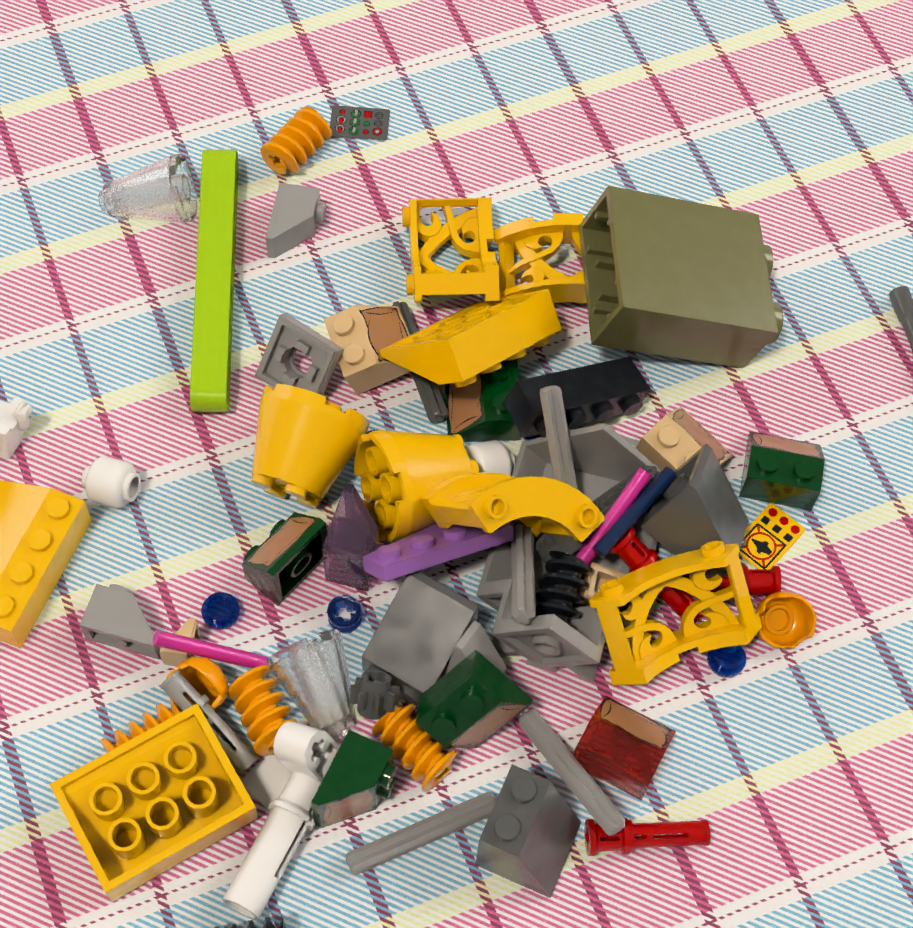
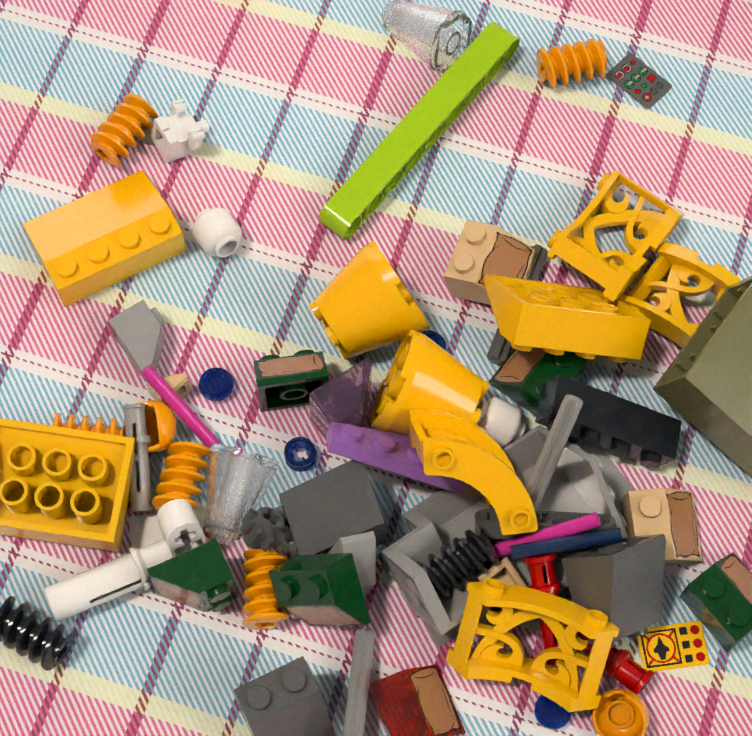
camera: 40 degrees right, 5 degrees up
(278, 359) = (408, 235): light grey piece -> none
(293, 217) = (517, 123): light grey slope -> none
(420, 833) = (212, 652): light grey axle -> none
(523, 575) = (439, 526): light grey axle -> none

